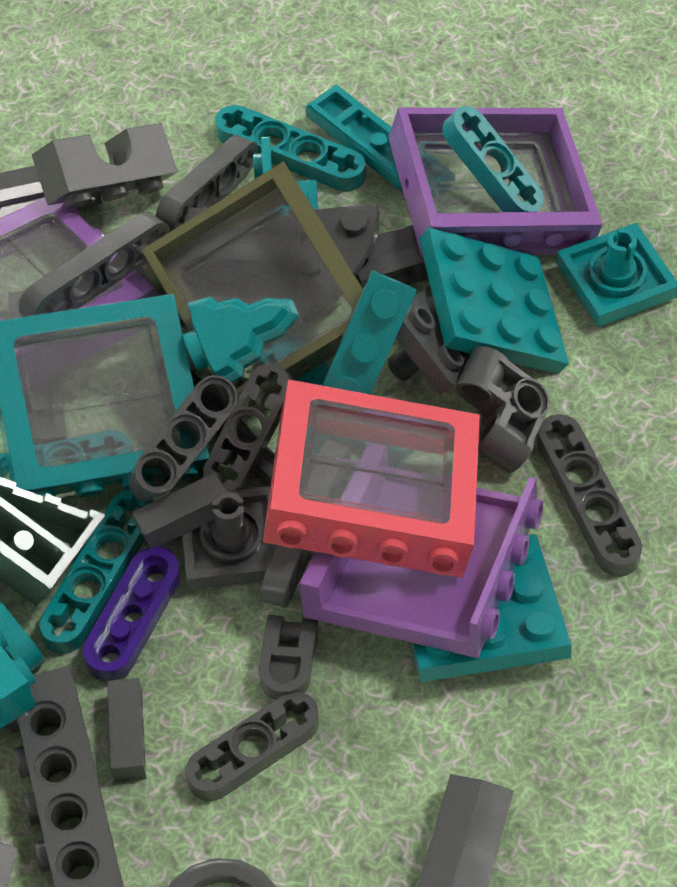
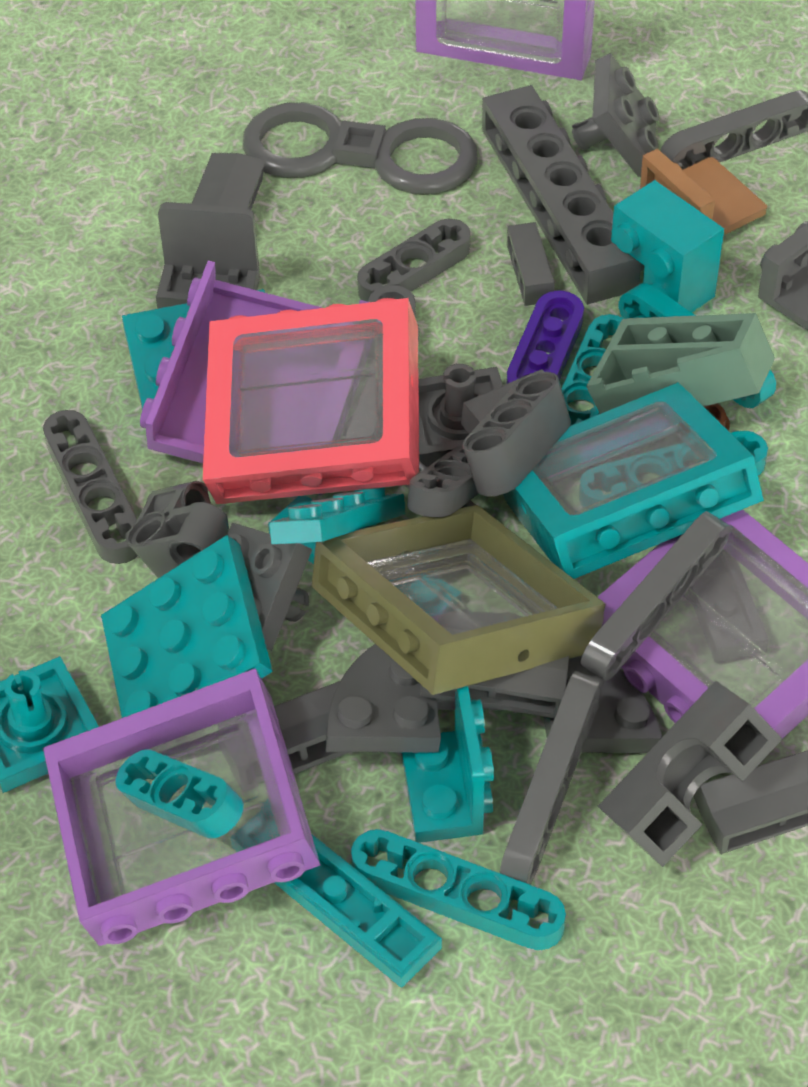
camera: 175 degrees right, 5 degrees down
(234, 334) = (478, 521): teal rock -> none
(480, 719) = (203, 234): none -> dark grey bracket

